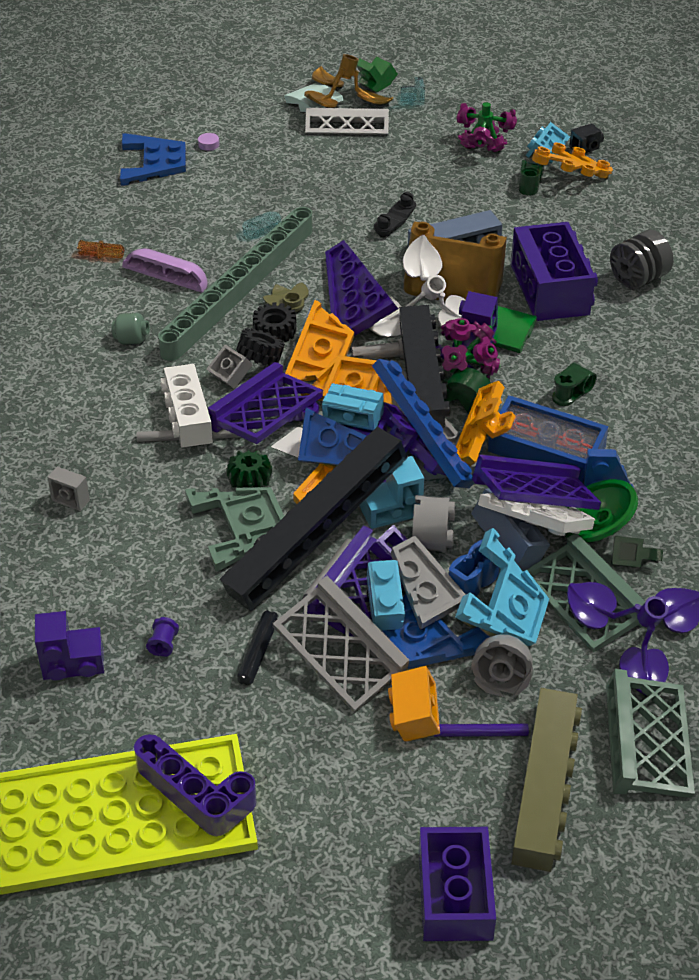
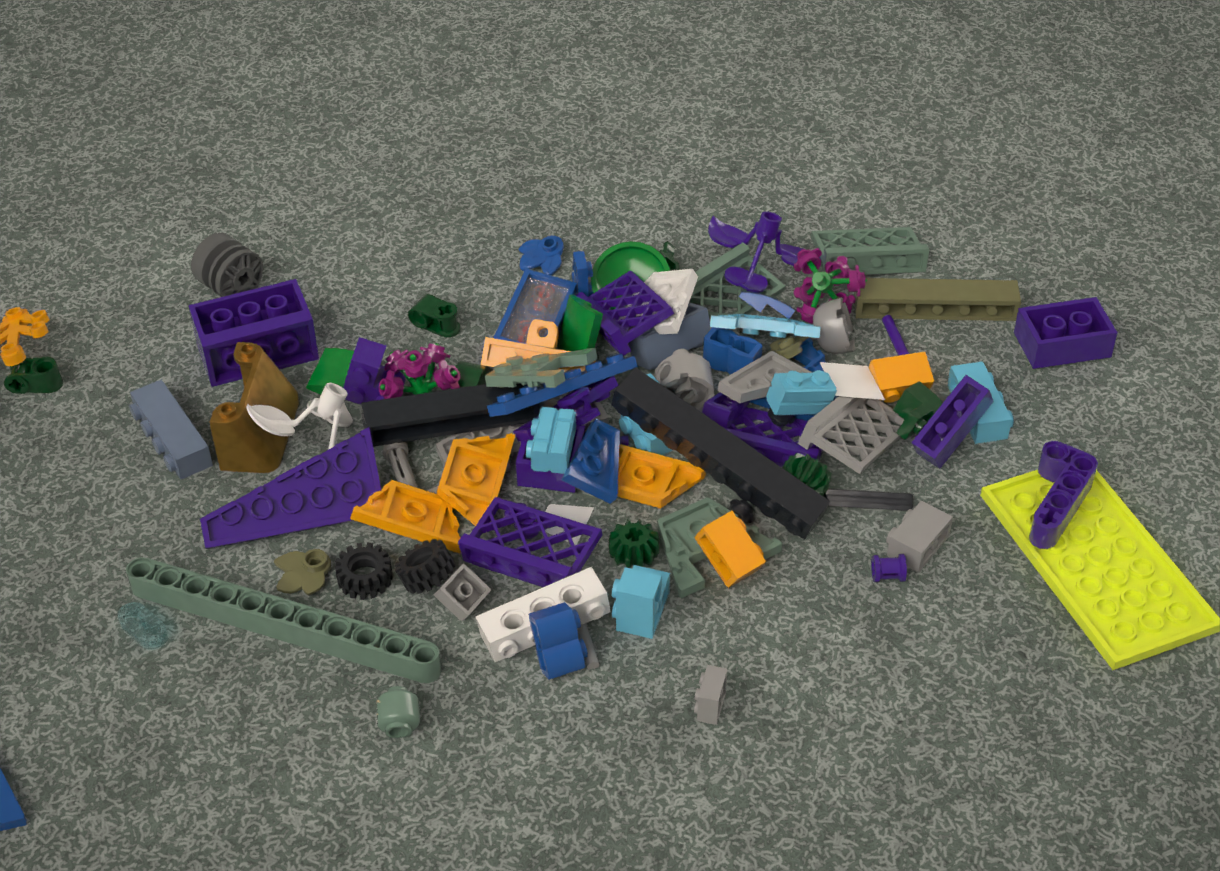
camera: 100 degrees left, 0 degrees up
(66, 651) = (944, 630): dark purple brick -> none
(100, 249) = (211, 798): clear orange axle -> none
(151, 401) = (557, 640): none -> blue brick
(166, 268) = (251, 711): lavender brick -> none
(175, 459) = (640, 600): none -> medium azure brick
(192, 667) = (919, 535): none -> light grey brick
(212, 520) = (730, 548): none -> light orange brick
(285, 589) = (809, 471): none -> dark green gear
(316, 712) = (952, 421): none -> dark purple brick
(354, 710) = (916, 408): none -> dark green brick
(365, 770) = (997, 420): none -> medium azure brick
(396, 216) = (119, 492): black piece -> none
(401, 645) = (853, 381): none -> white sticker
(443, 397) = (538, 369): none -> sand green wing
(525, 449) = (579, 325): none -> green slope
(552, 616) = (760, 300): none -> slope
(573, 663) = (822, 282): none -> magenta plant
(659, 465) = (542, 253): none -> blue plate

